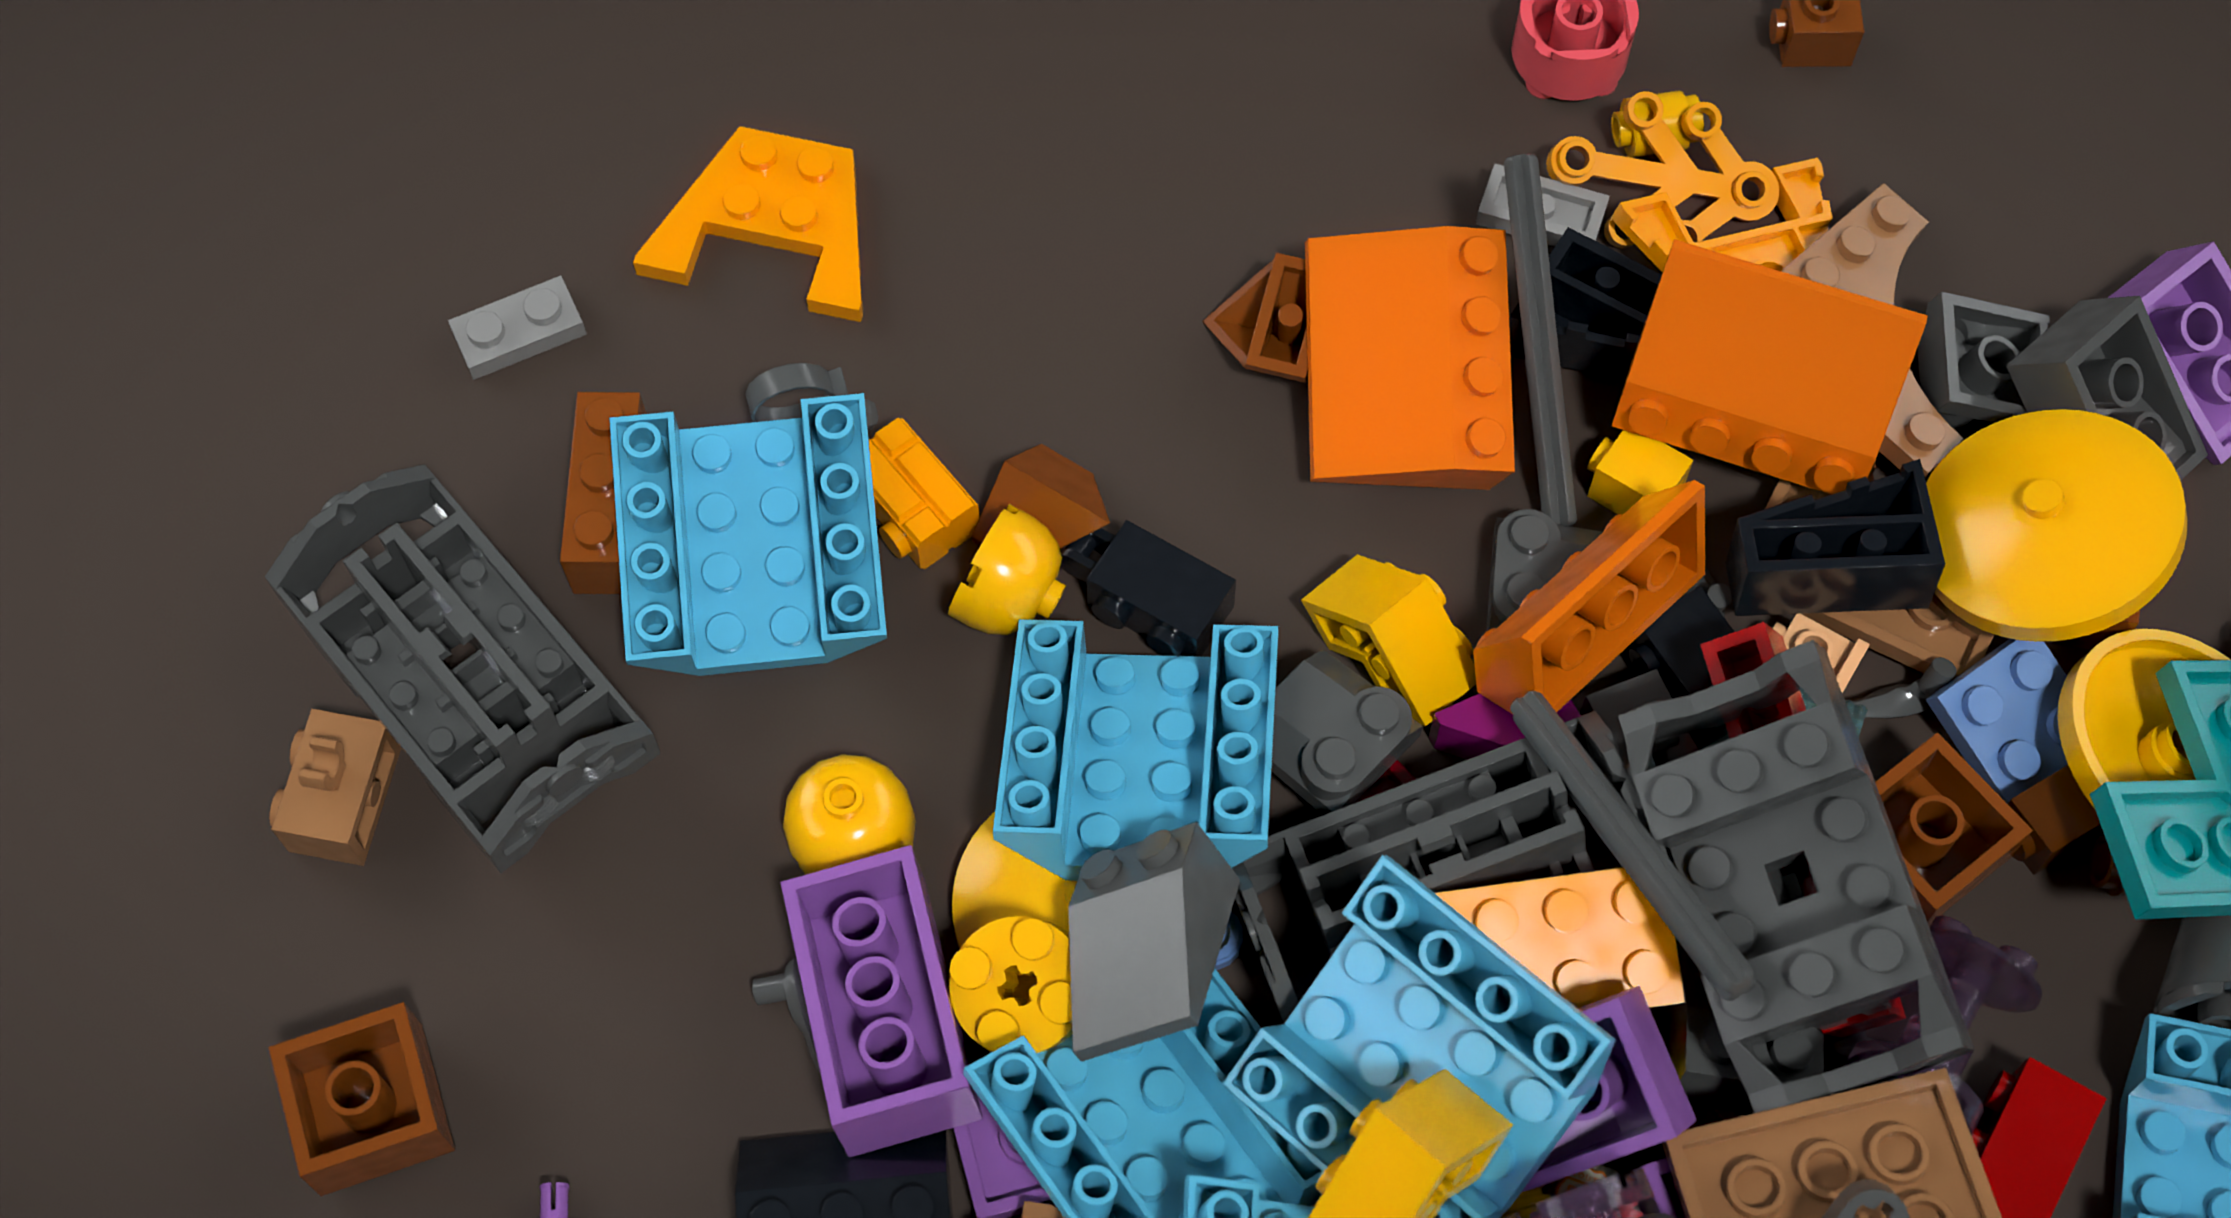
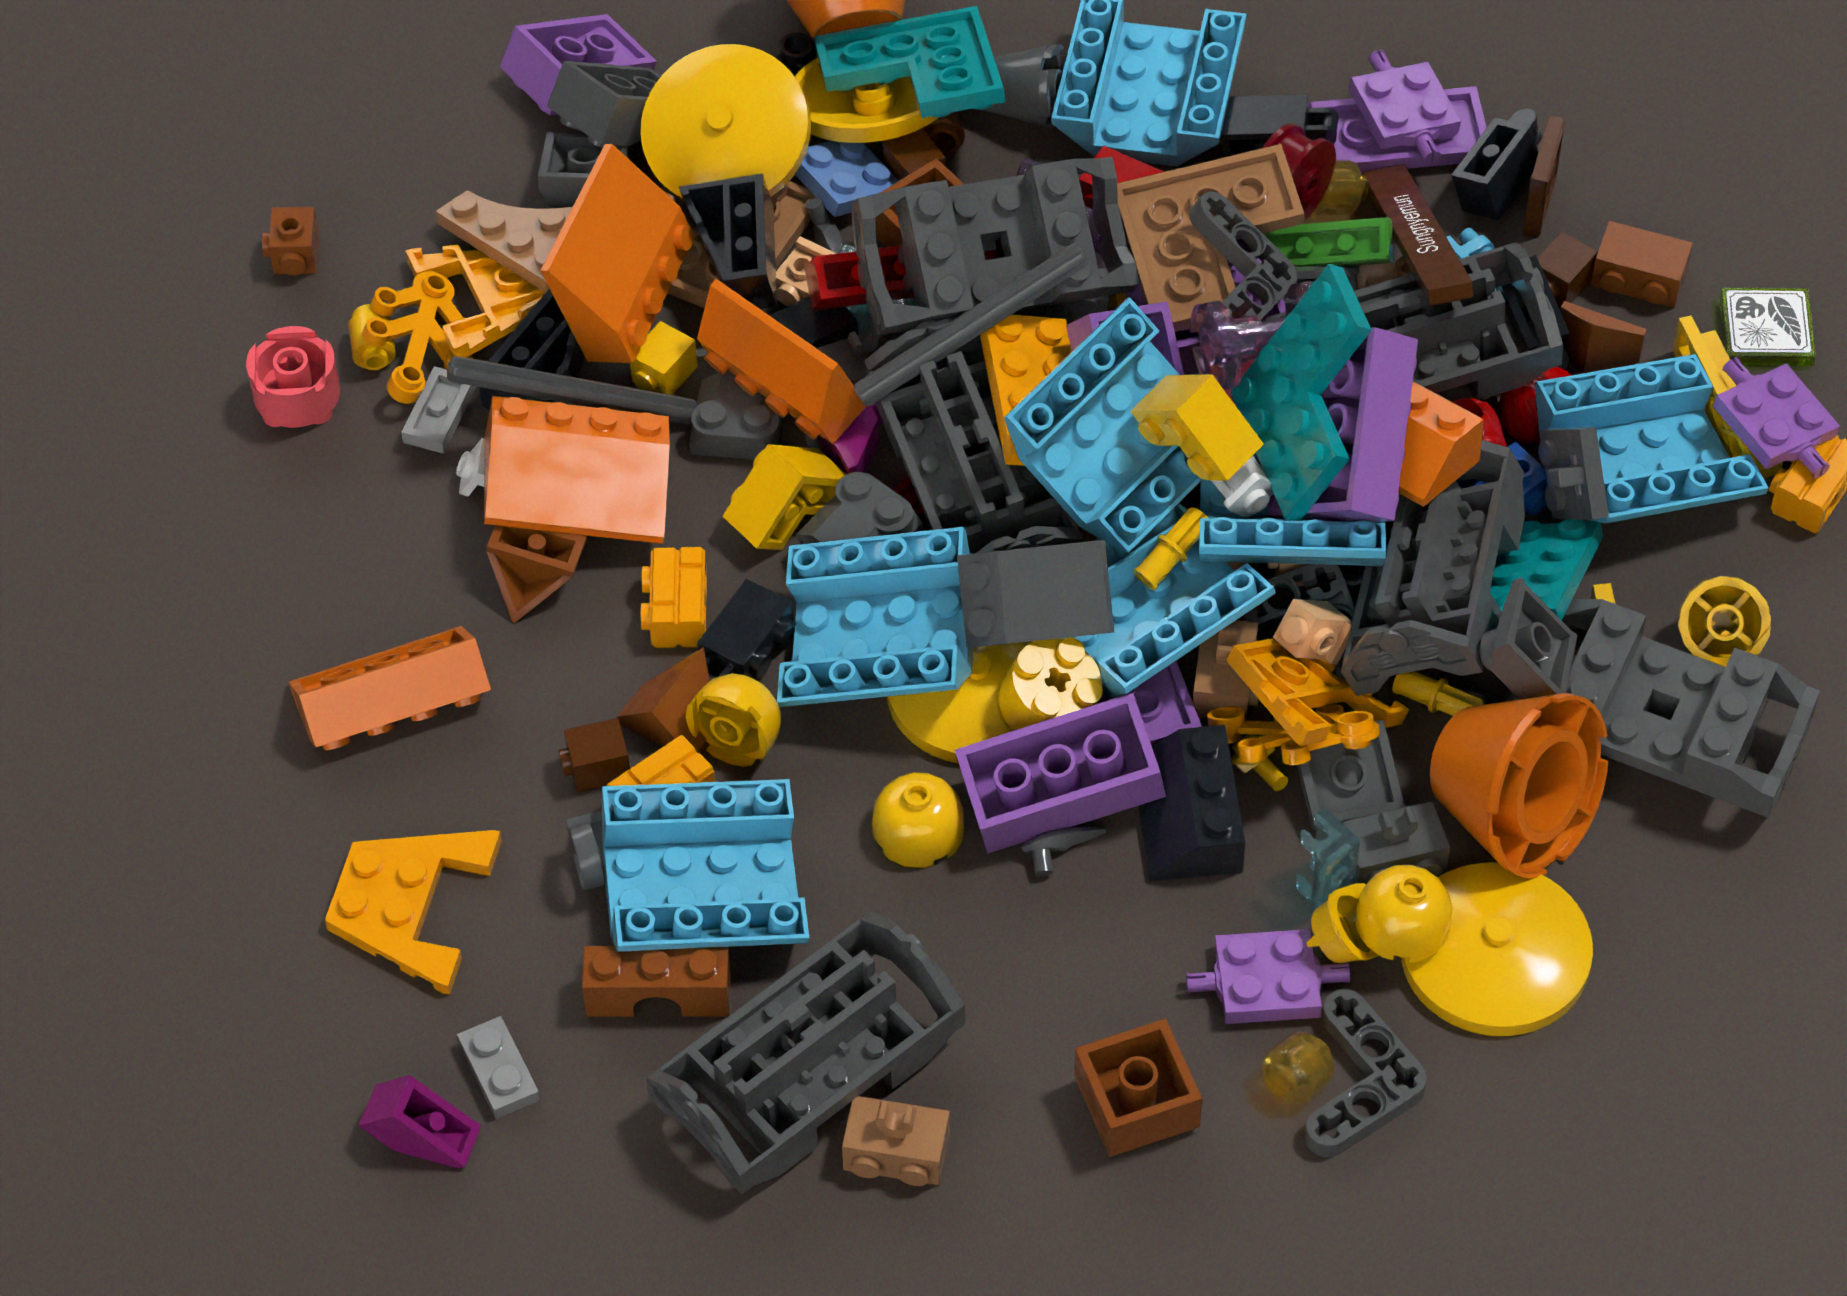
camera: 90 degrees left, 10 degrees down
(432, 238) = (419, 1122): none -> magenta slope
(967, 414) = (594, 754): none -> reddish brown brick
(1086, 173) = (390, 687): none -> orange slope
(1226, 503) = (676, 596): none -> light orange brick
(1242, 1155) = (1170, 549): none -> yellow axle

